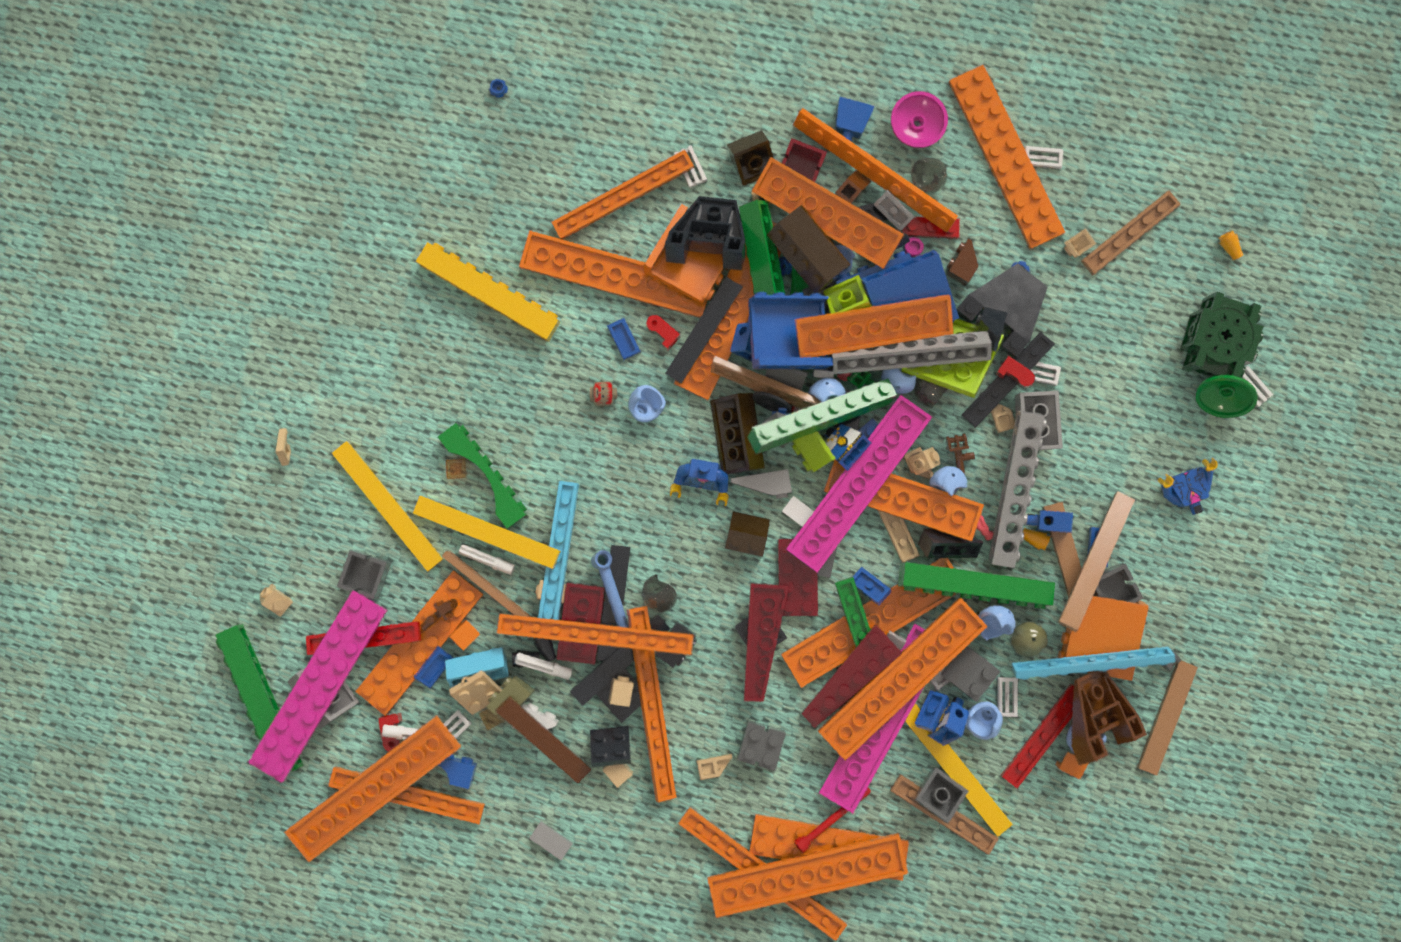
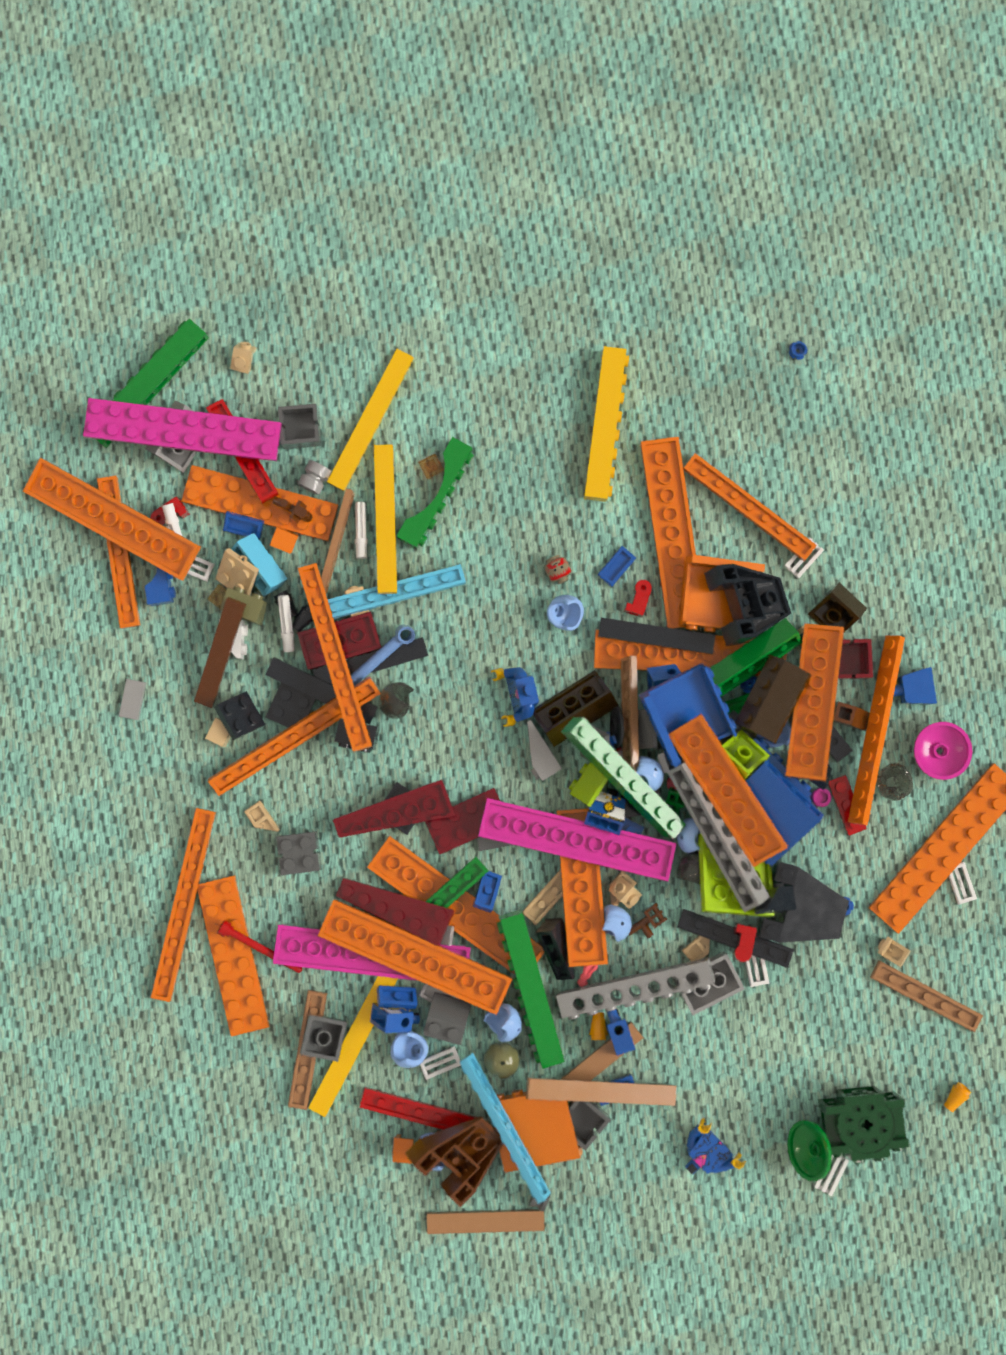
camera: 70 degrees right, 0 degrees up
(282, 448) = (381, 303): tan tile -> none
(418, 581) = (314, 477): none -> light grey wheel
(621, 691) = (293, 703): tan brick -> none
(747, 534) = (486, 757): dark brown slope -> none
(797, 511) = (527, 794): white tile -> none
(807, 875) = (199, 946): orange plate -> none
(894, 210) = (846, 763): light grey plate -> none
(964, 265) = (825, 851): reddish brown slope -> none

